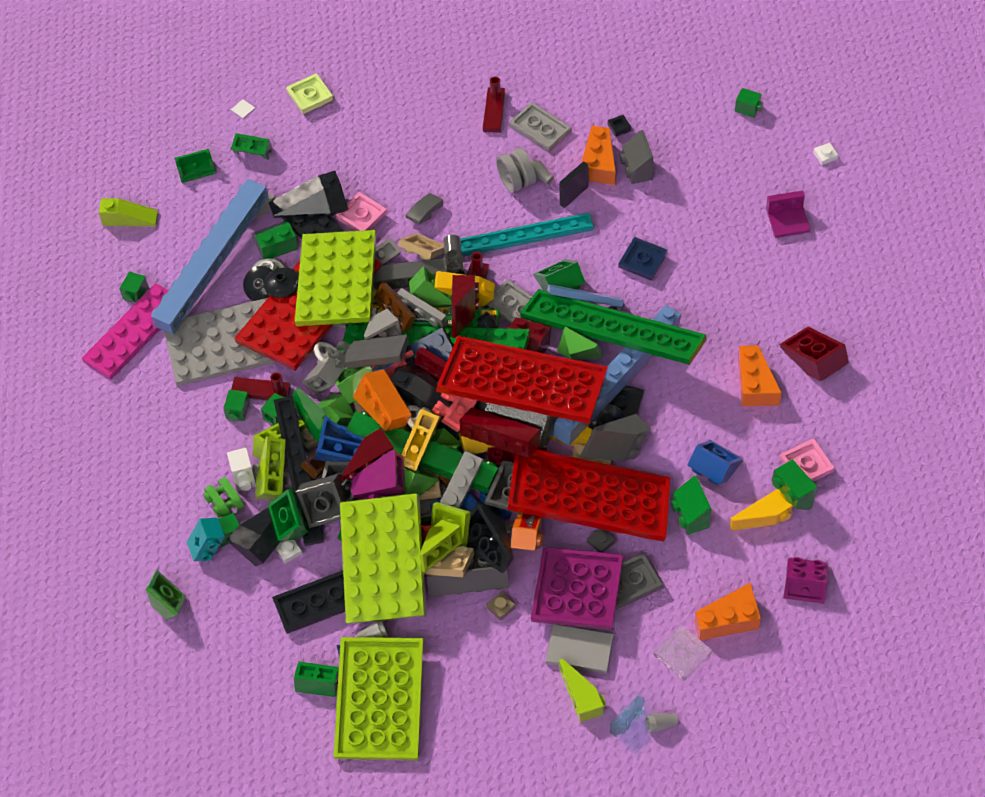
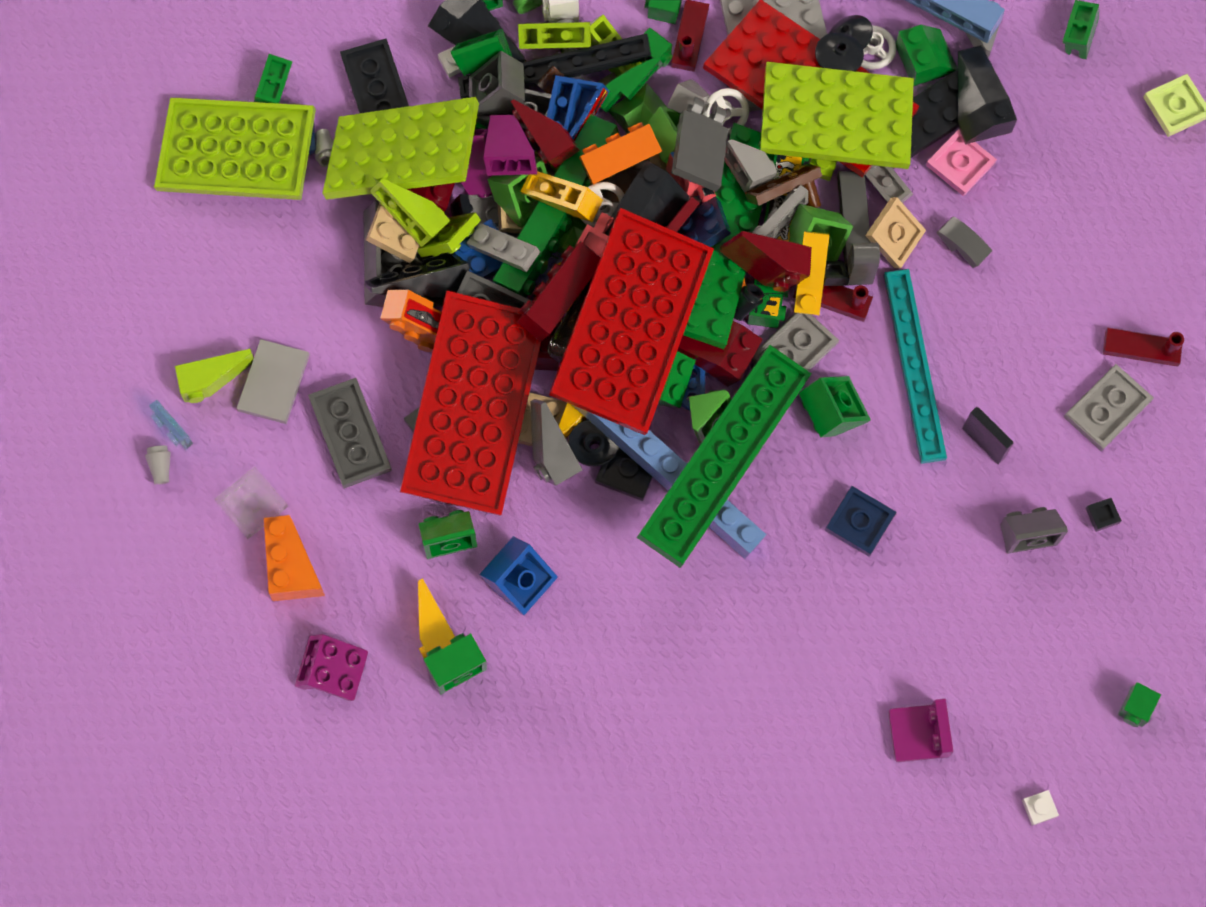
camera: 90 degrees right, 15 degrees up
(242, 108) = (1158, 24): white sticker -> none
(500, 606) = (345, 295): dark tan plate -> none
(516, 170) = (1016, 359): light grey wheel -> none
(542, 172) = (1022, 397): light grey cone -> none
(577, 588) = (346, 380): magenta plate -> none
(584, 295) = (793, 432): medium blue tile -> none
(599, 156) = (1044, 477): orange wedge -> none
(756, 378) = (644, 643): orange wedge -> none
(809, 459) = (504, 695): bright pink plate -> none
(816, 353) = (679, 732): dark red slope -> none

